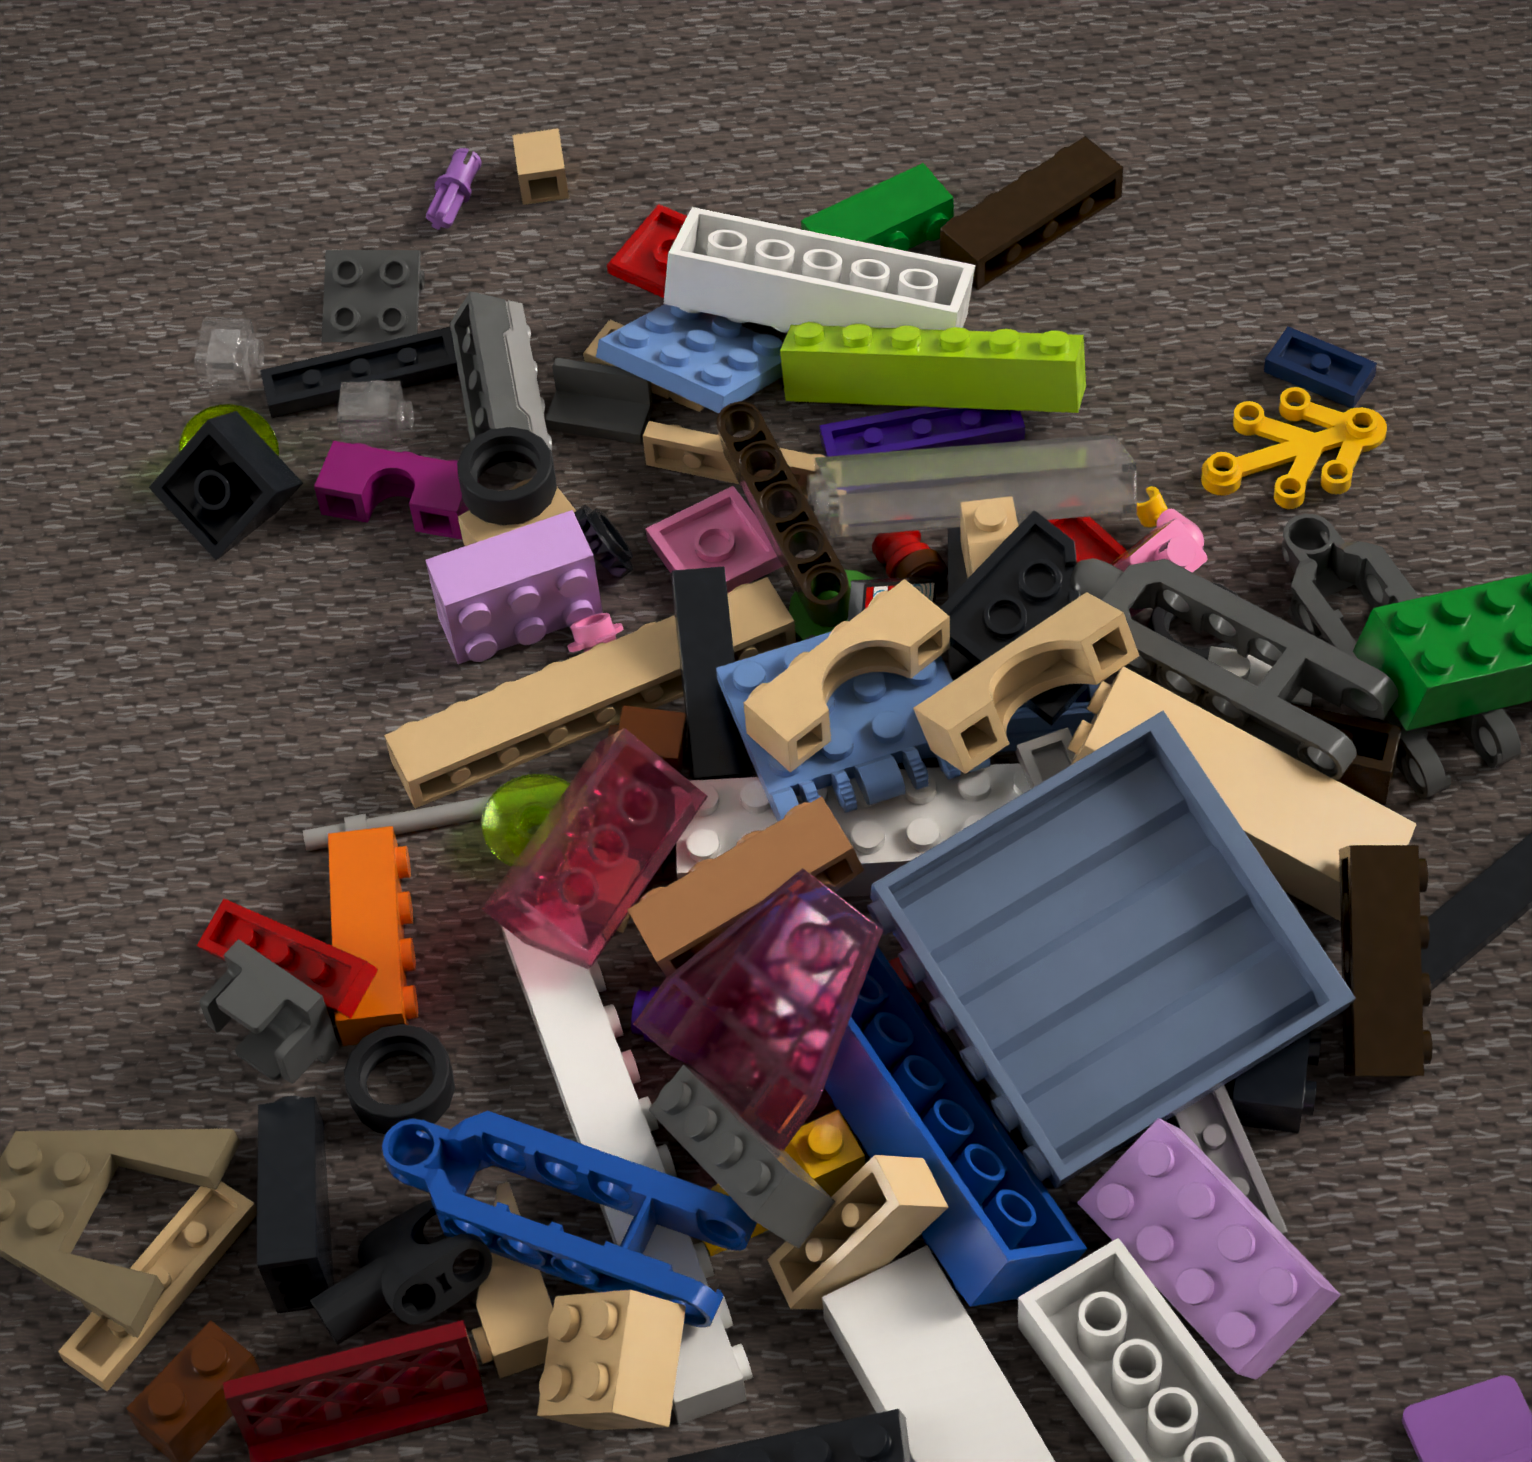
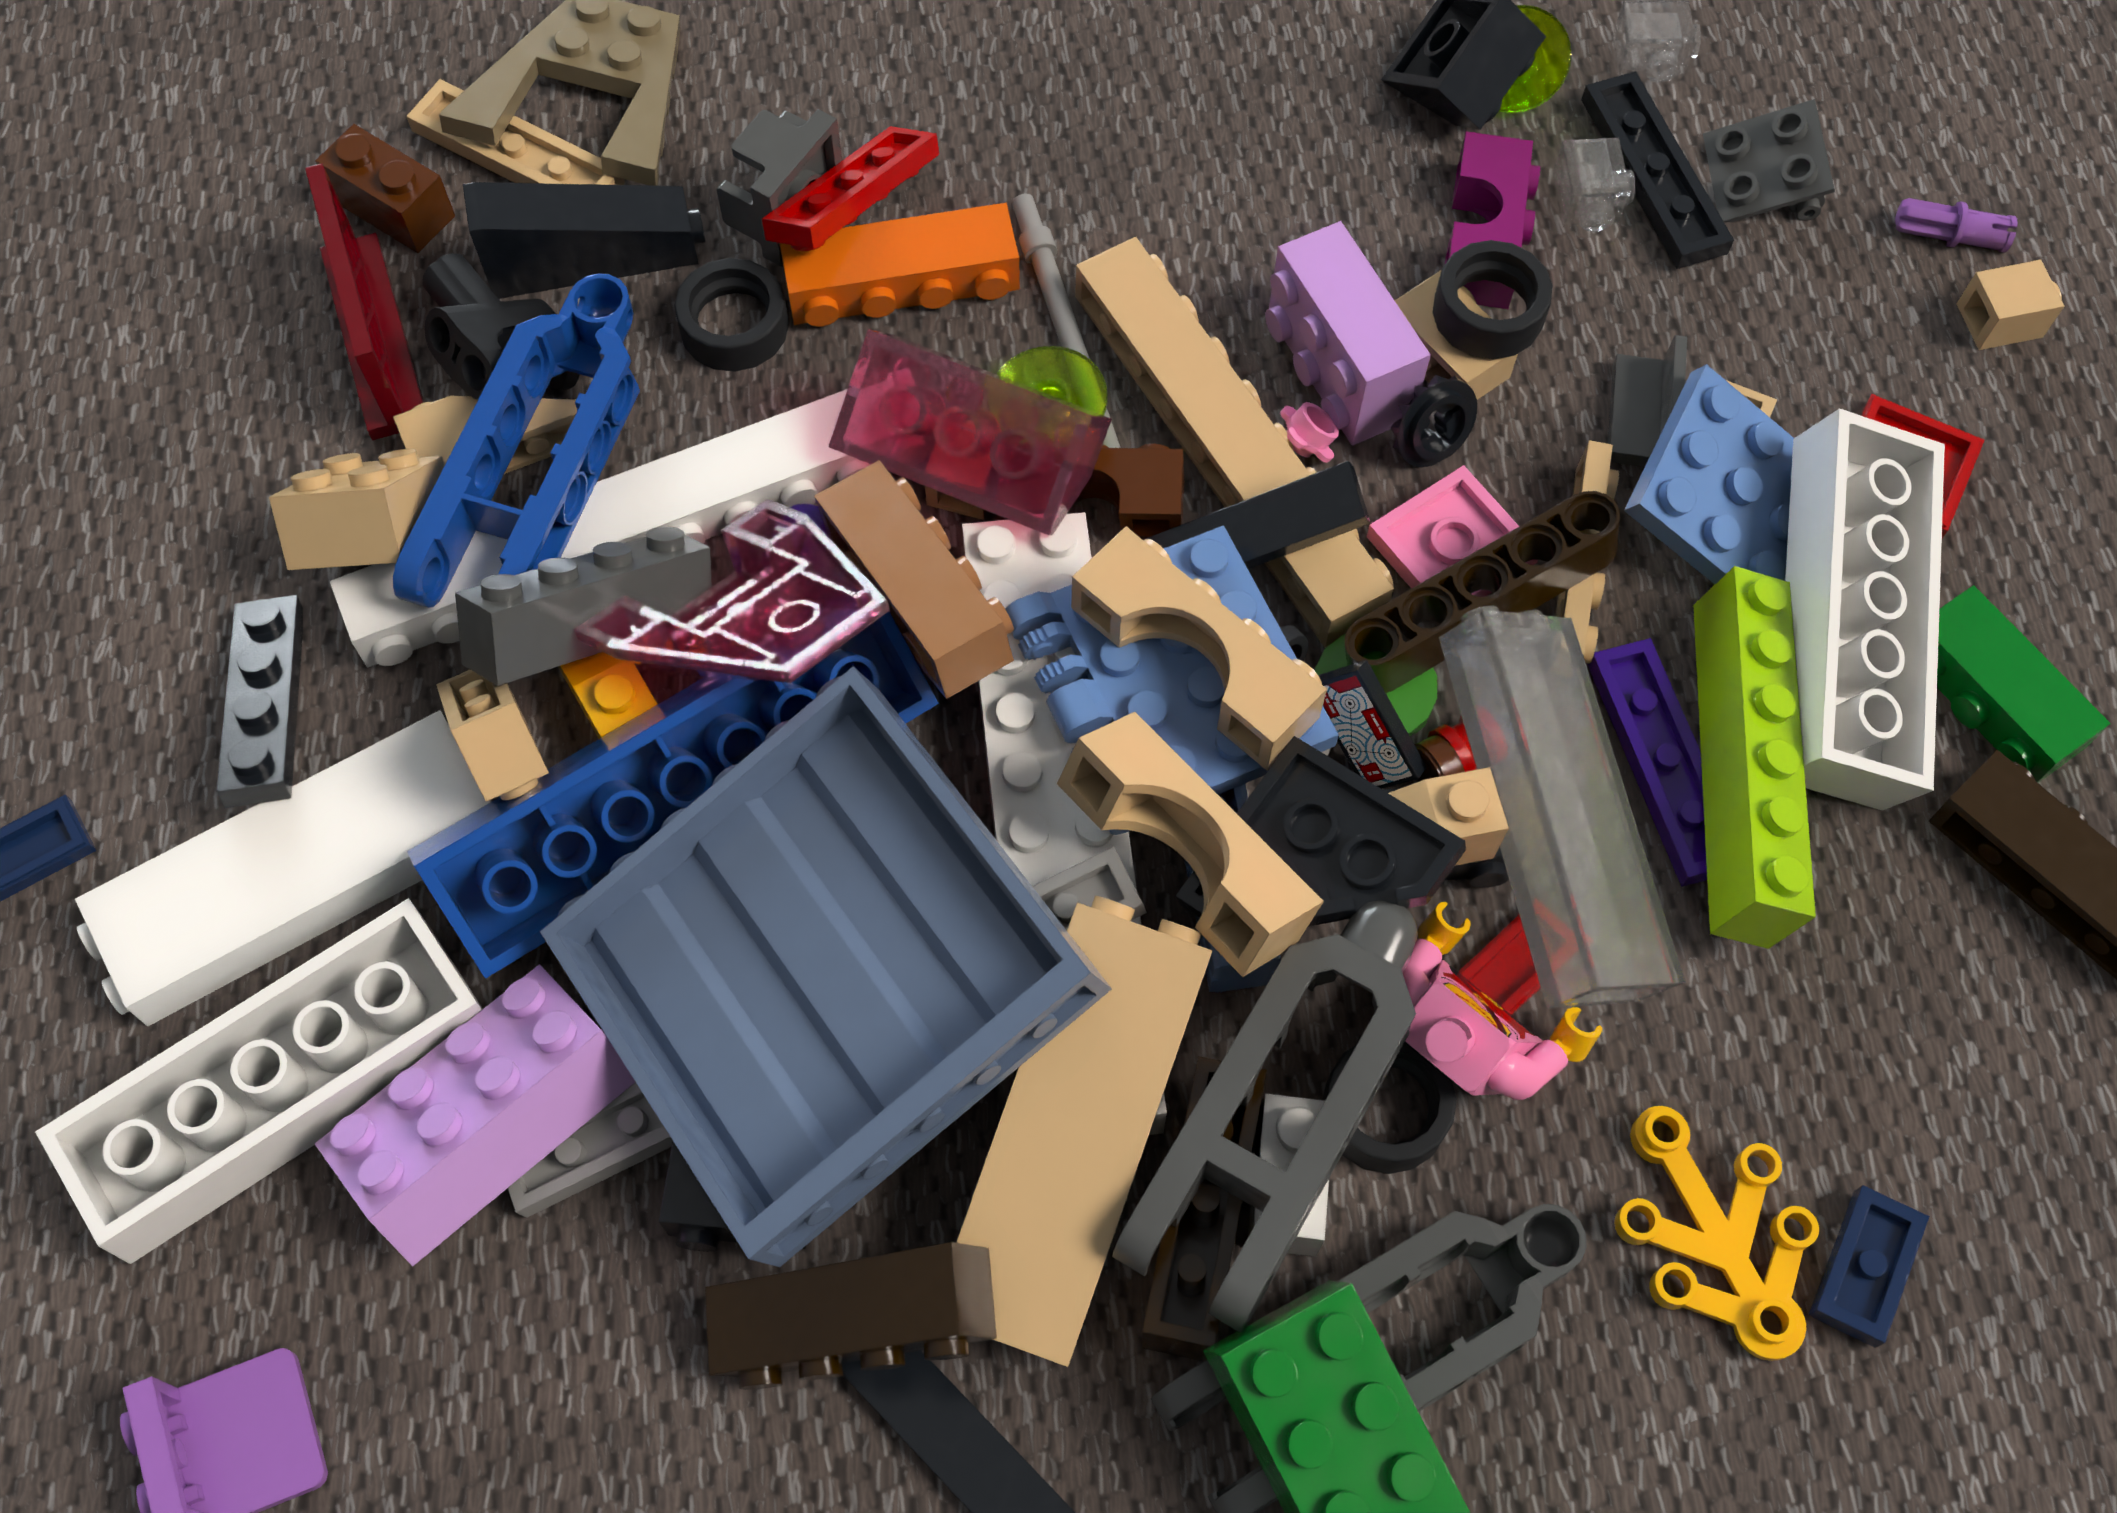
camera: 80 degrees right, 10 degrees up
(498, 372) = (1657, 294): dark grey piece -> none

